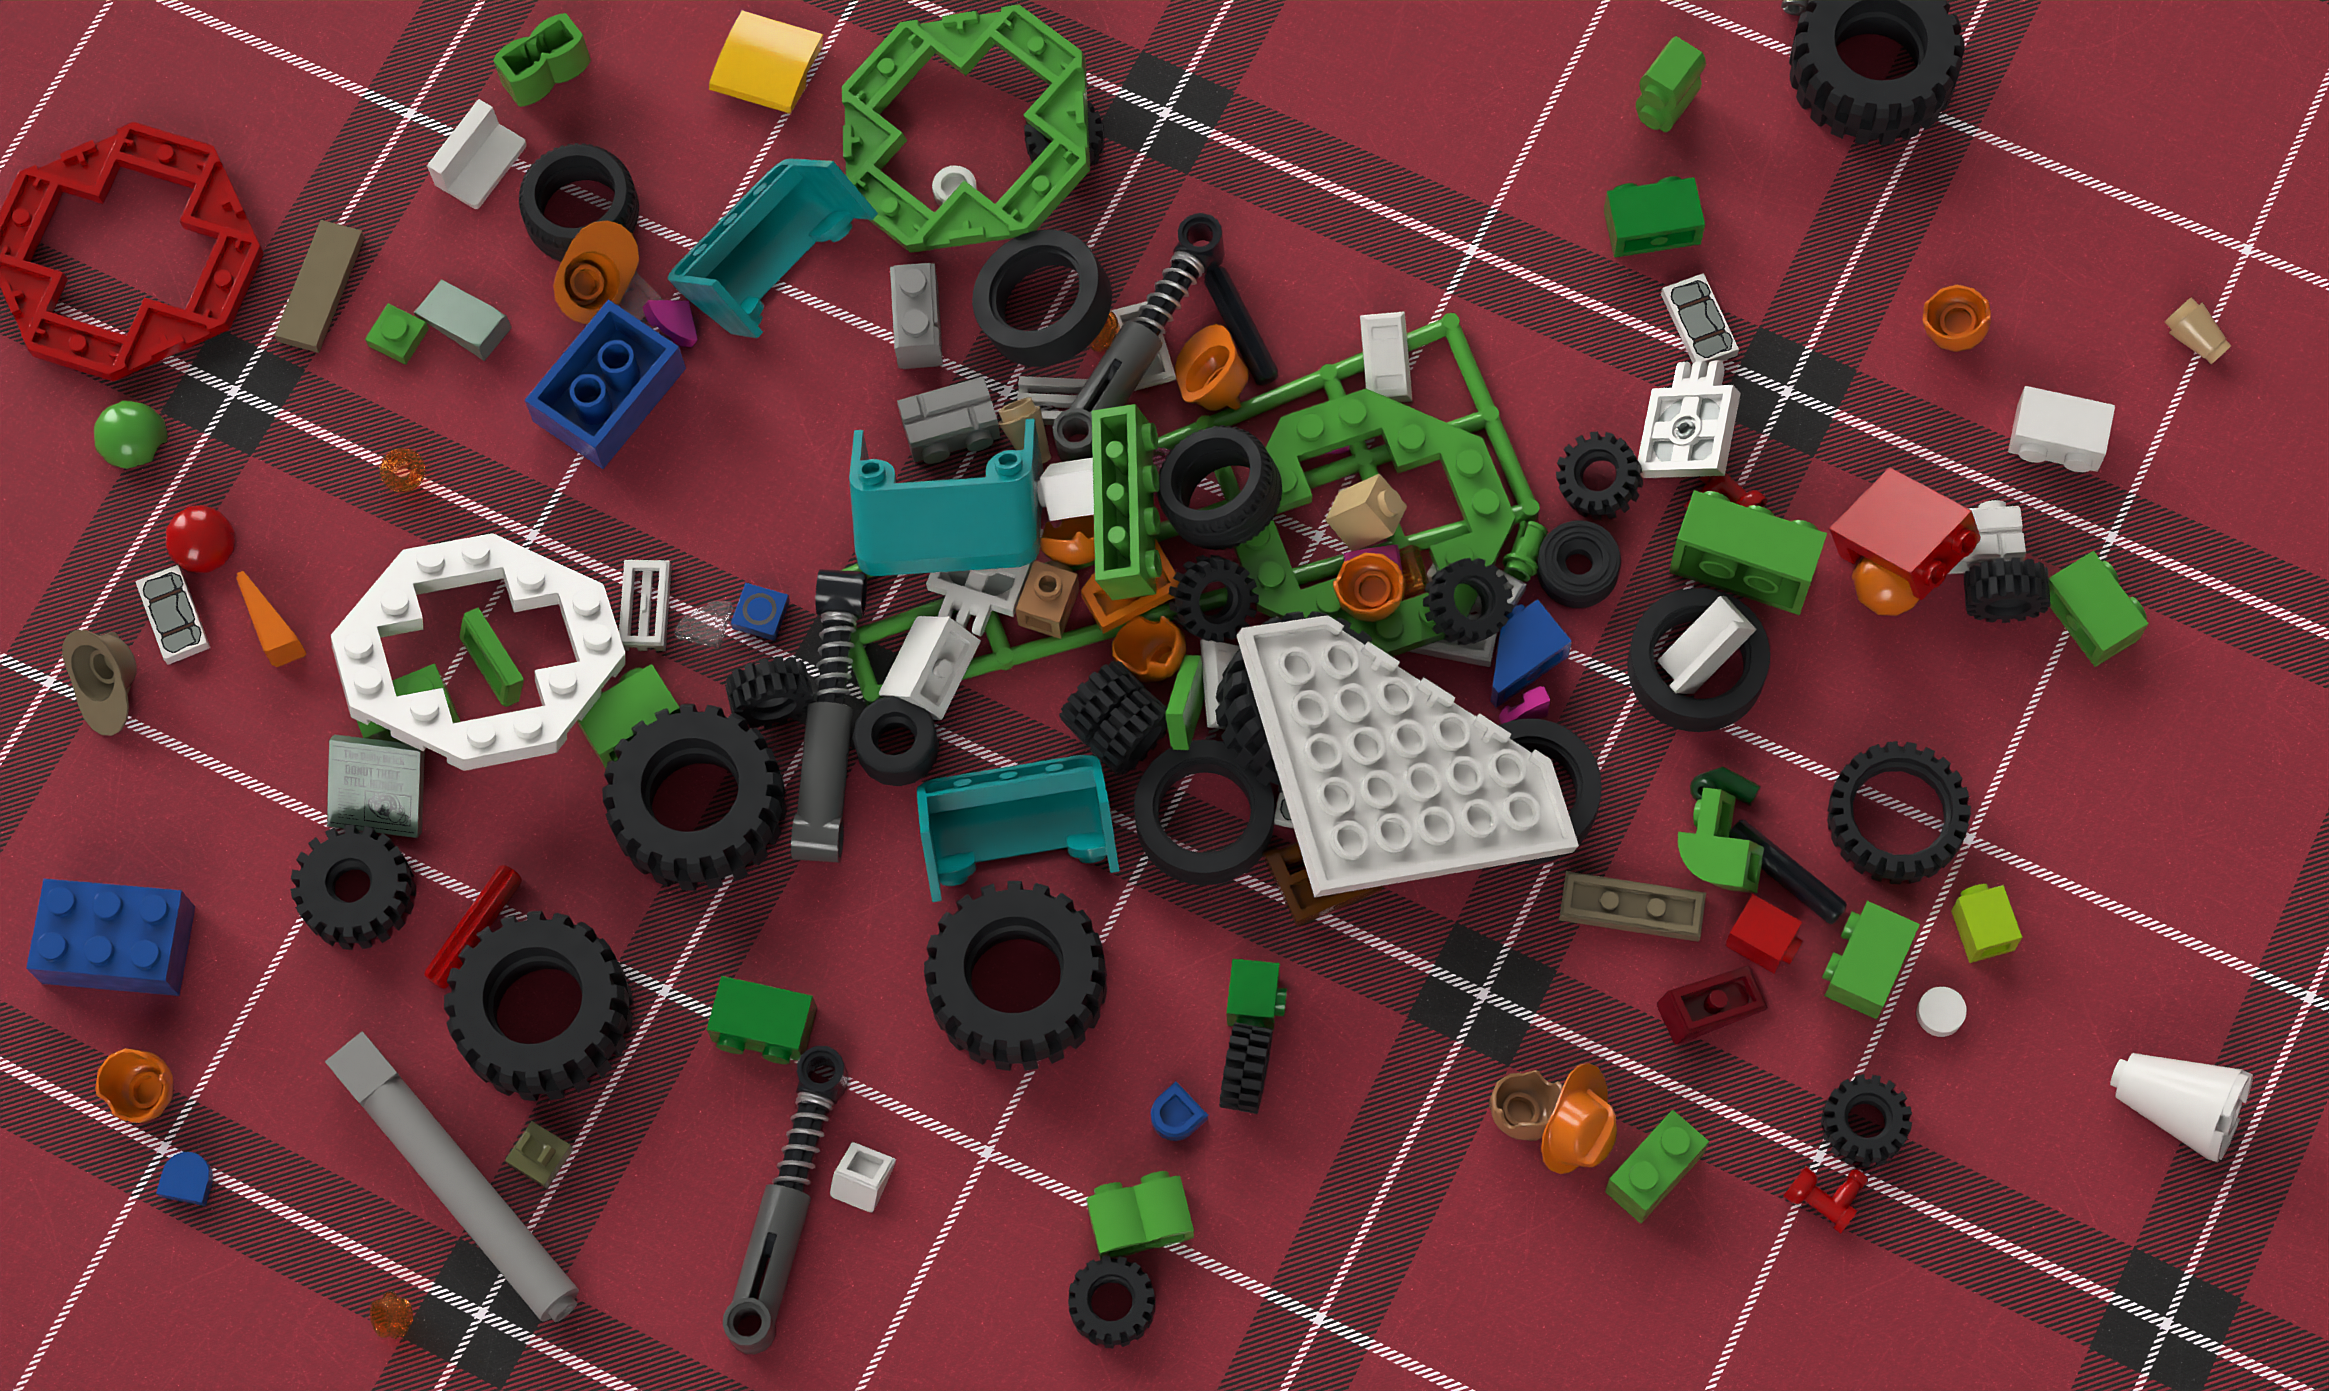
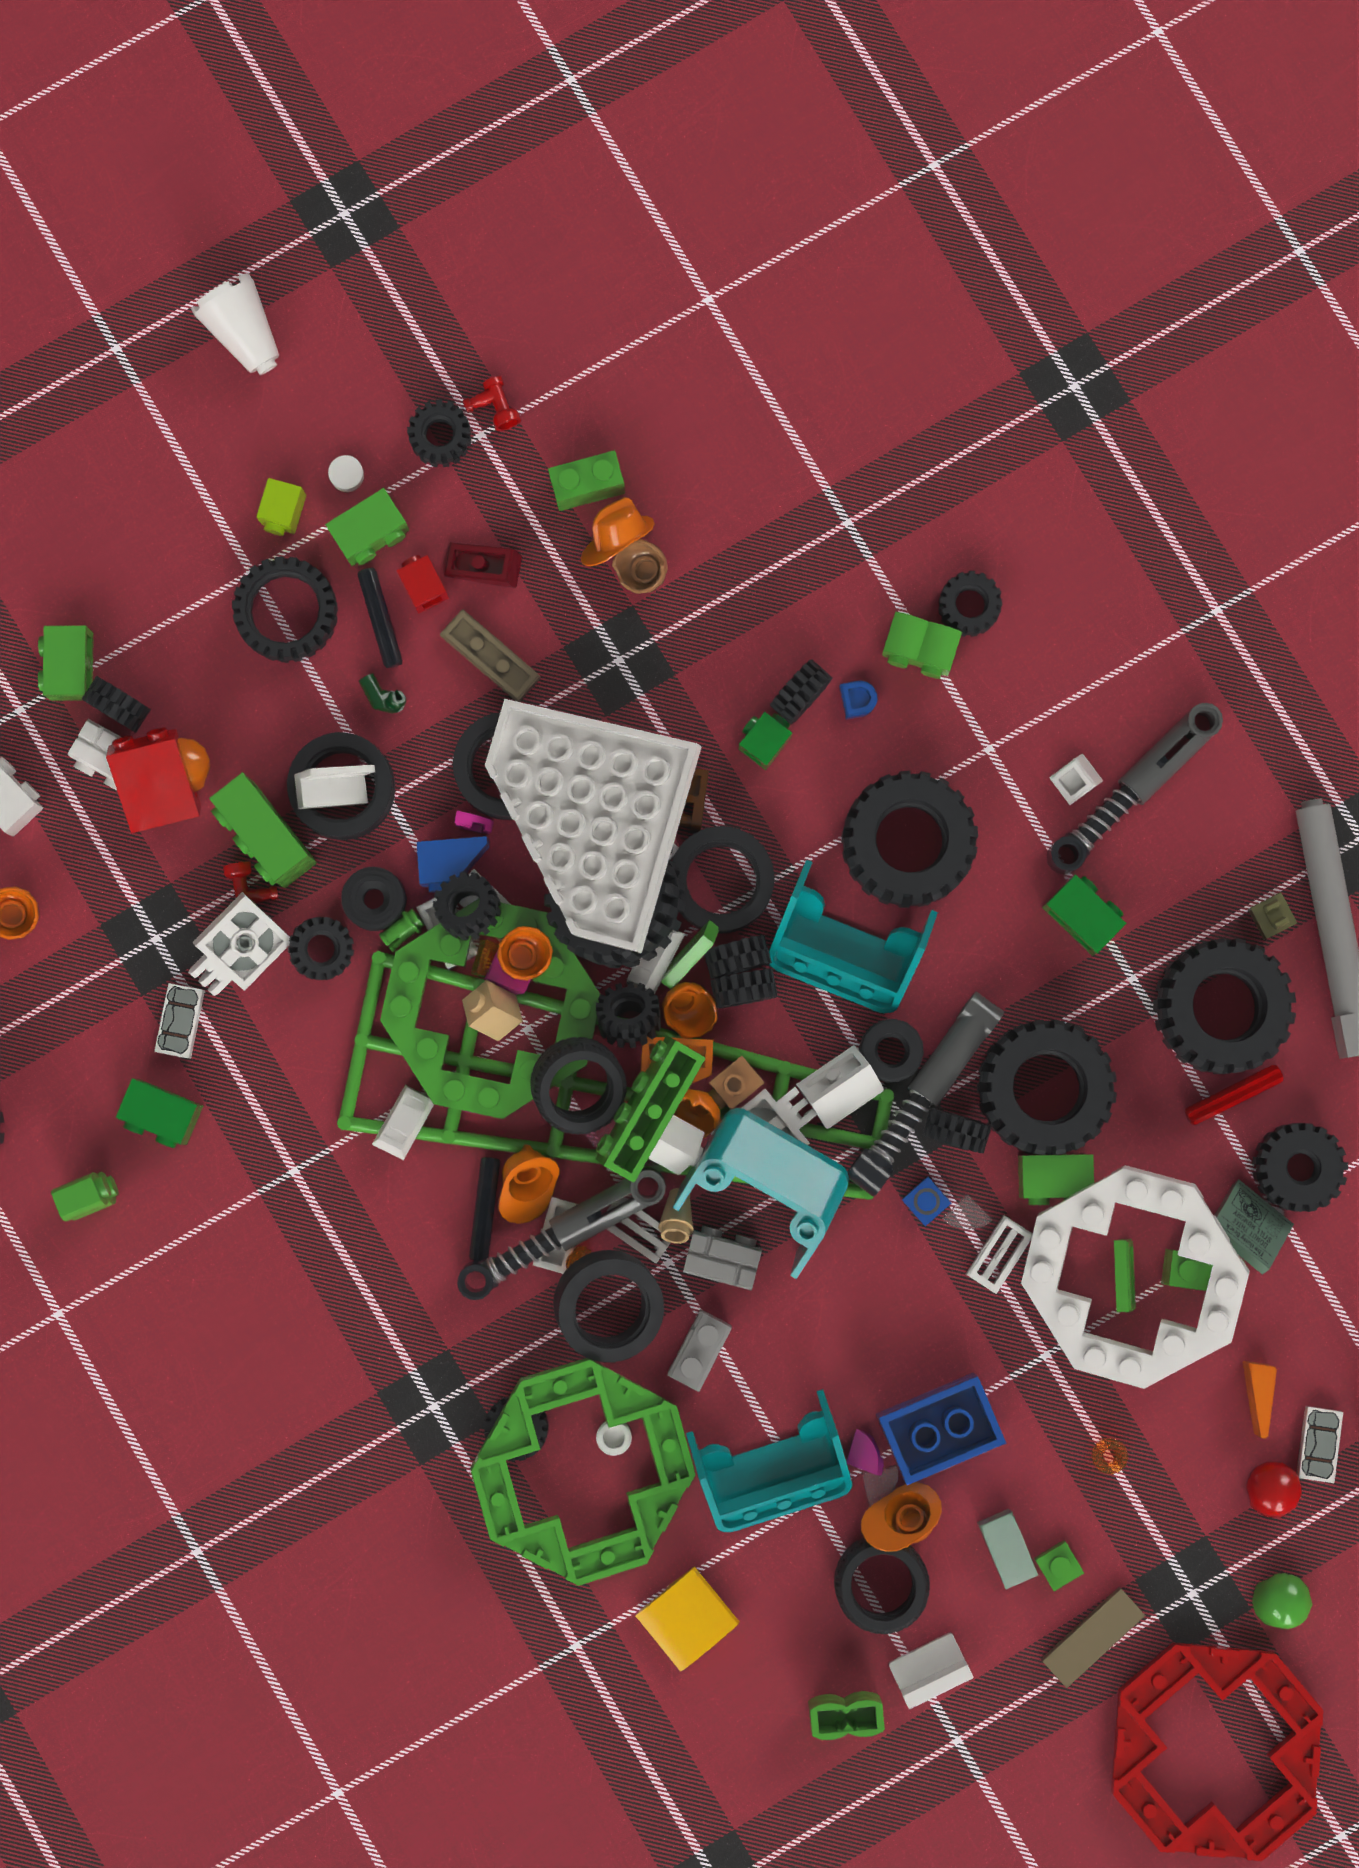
camera: 150 degrees left, 15 degrees up
(1715, 856) = (421, 648): bright green brick -> none

